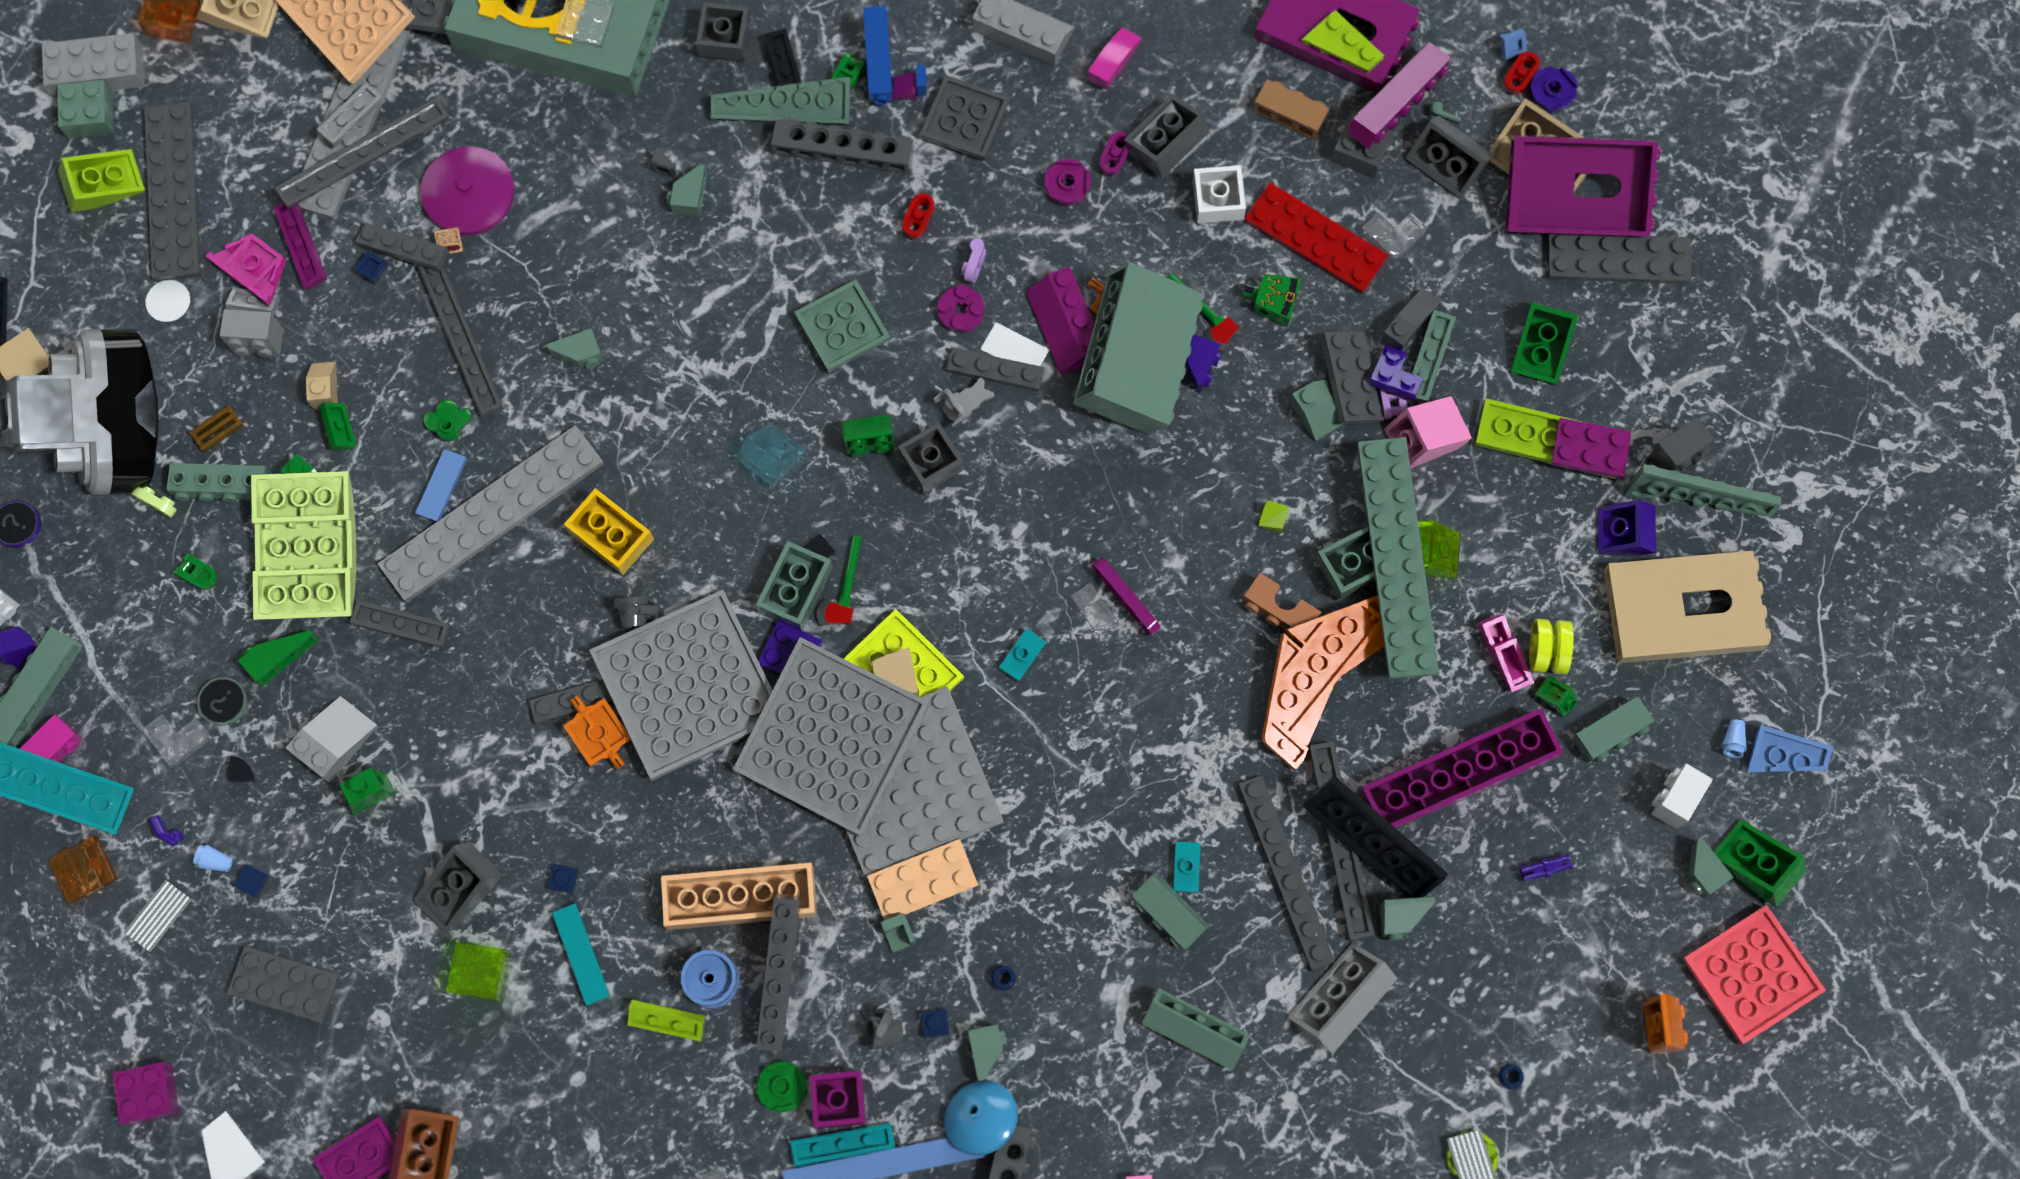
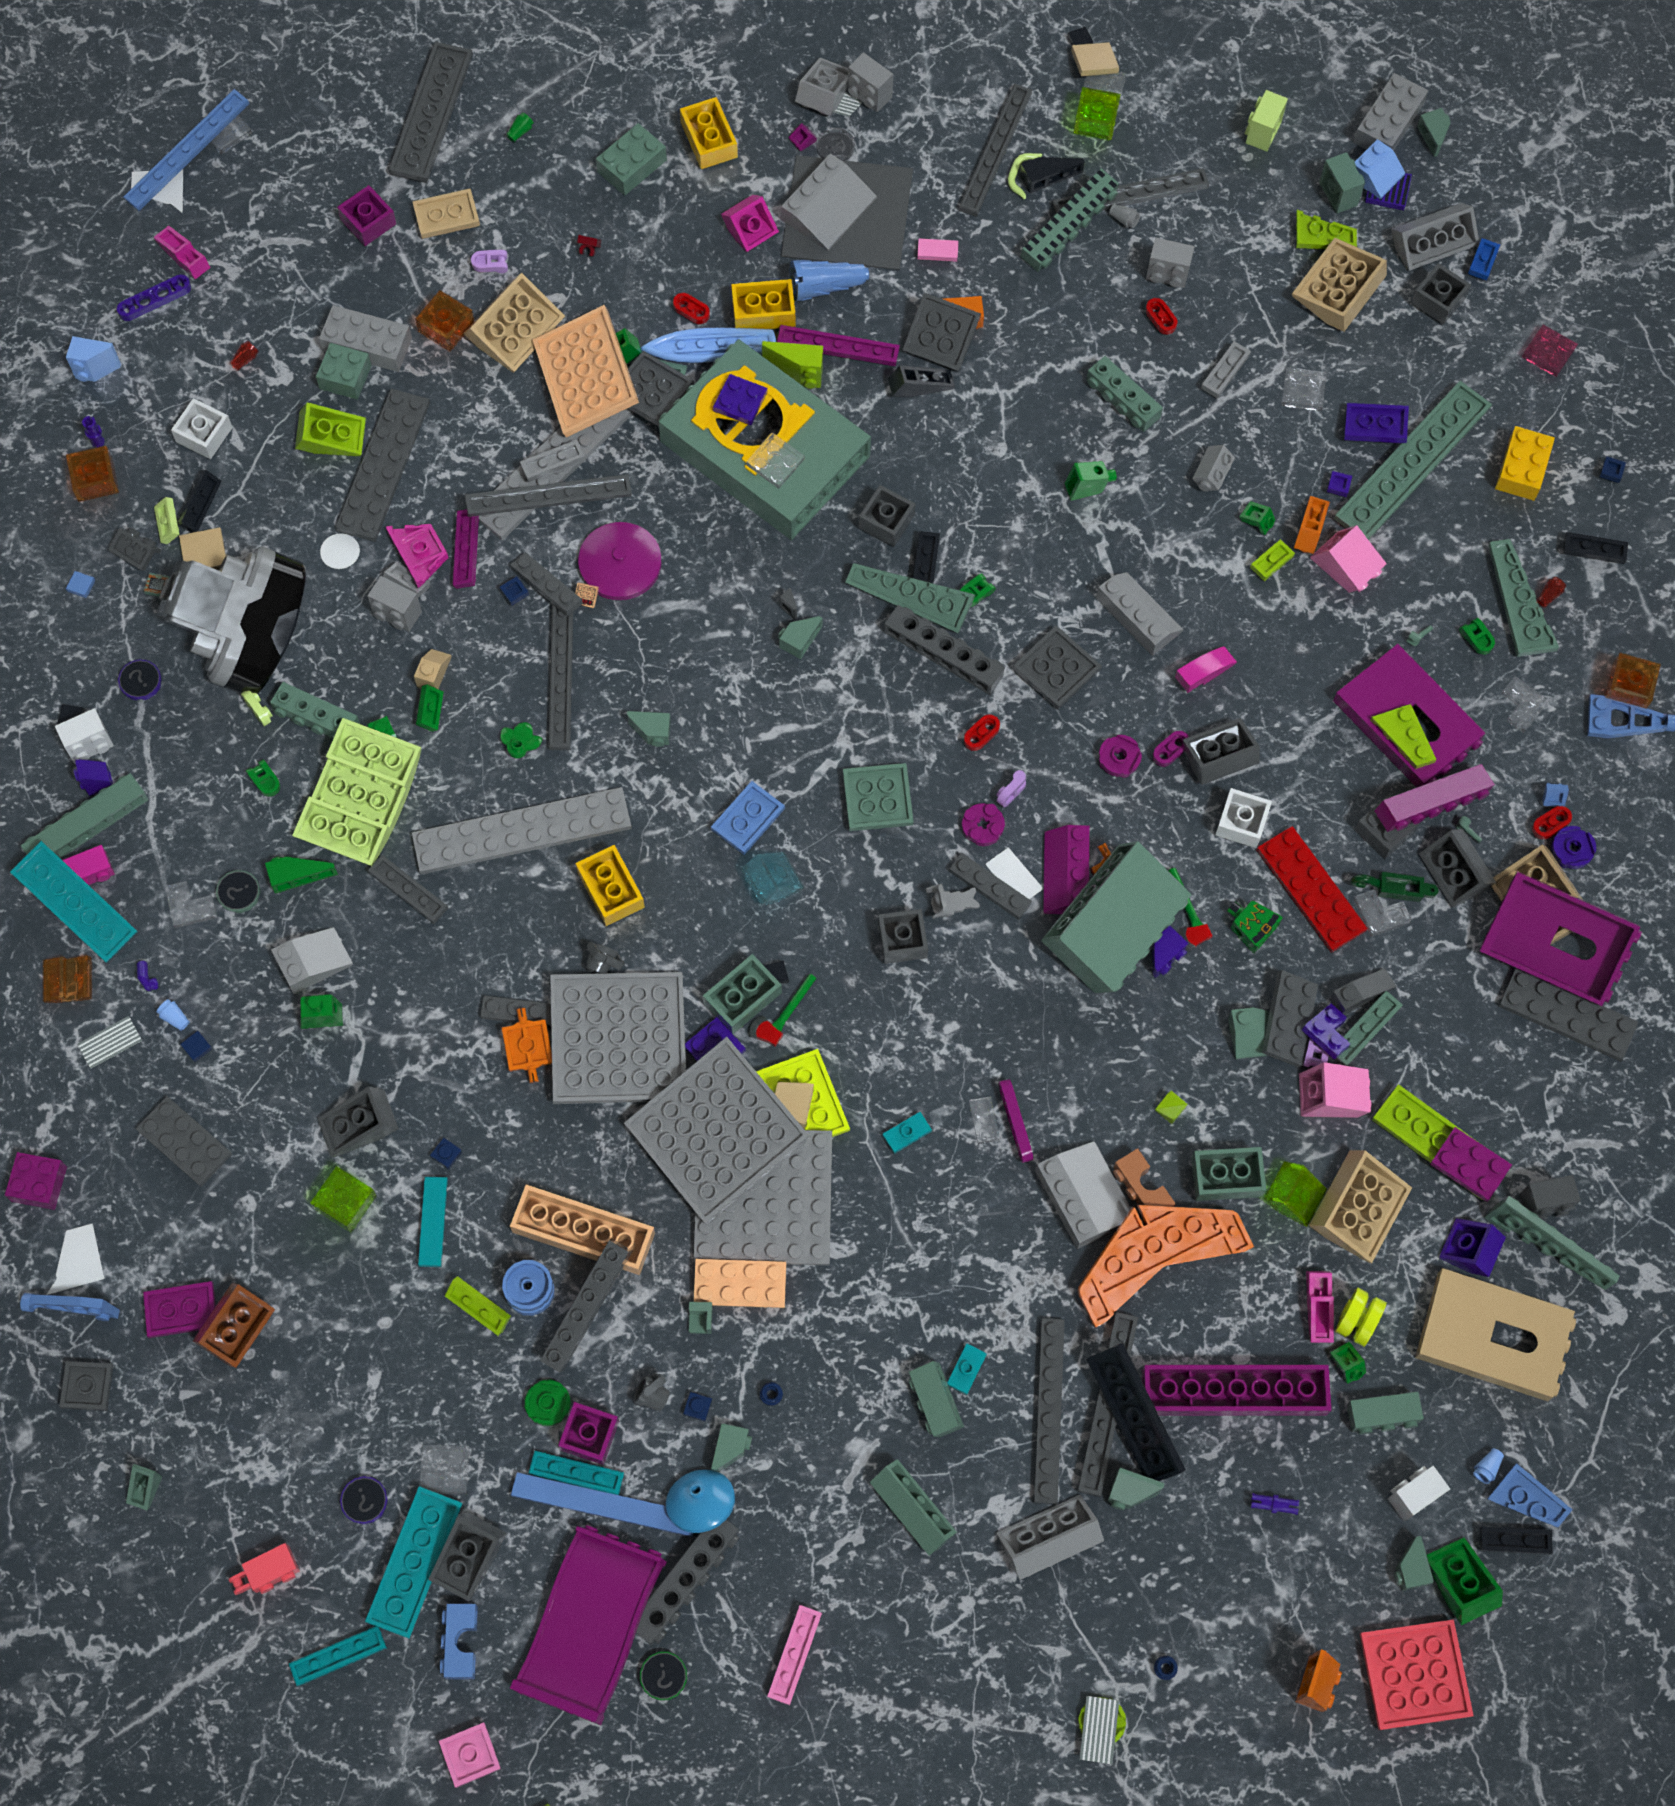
camera: 20 degrees right, 5 degrees down
(196, 433) = (338, 664): pearl gold tile -> none
(240, 771) = (227, 953): black tile -> none
(441, 486) = (491, 791): medium blue tile -> none
(719, 402) = (747, 817): none -> medium blue plate
(868, 435) = (858, 896): green slope -> none
(878, 55) = (1006, 586): blue slope -> none
(905, 87) = (1018, 621): magenta slope -> none
(921, 82) = (1034, 621): blue tile -> none
(1225, 640) = (1083, 1193): none -> light grey slope
(1291, 109) = (1337, 772): medium nougat brick -> none
(1395, 200) = (1394, 886): none -> dark green piece
(1397, 558) = (1259, 1186): sand green plate -> none
(1501, 535) = (1360, 1205): none -> tan slope
(1544, 342) = (1470, 1058): green slope -> none
(1792, 800) = (1516, 1540): none -> black plate

